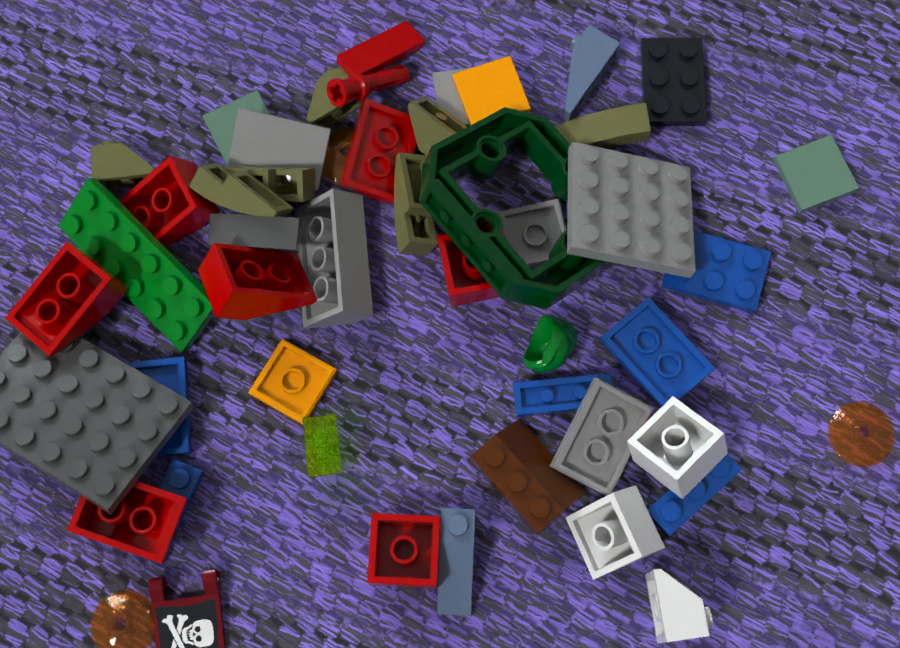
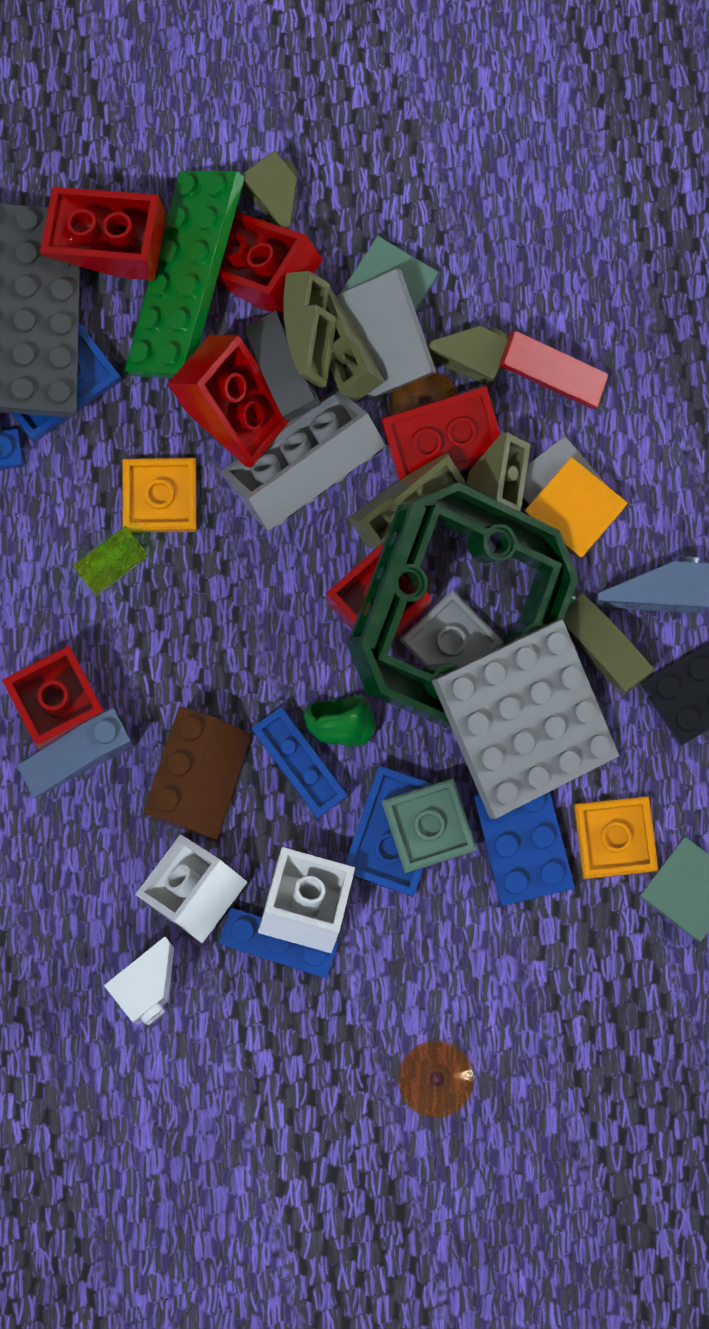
camera: 50 degrees right, 5 degrees up
(359, 86) = (494, 372): red pin -> none
(597, 438) = (269, 817): light grey tile -> none
(668, 326) = (429, 826): none -> sand green tile
(748, 204) = (615, 837): none -> light orange tile

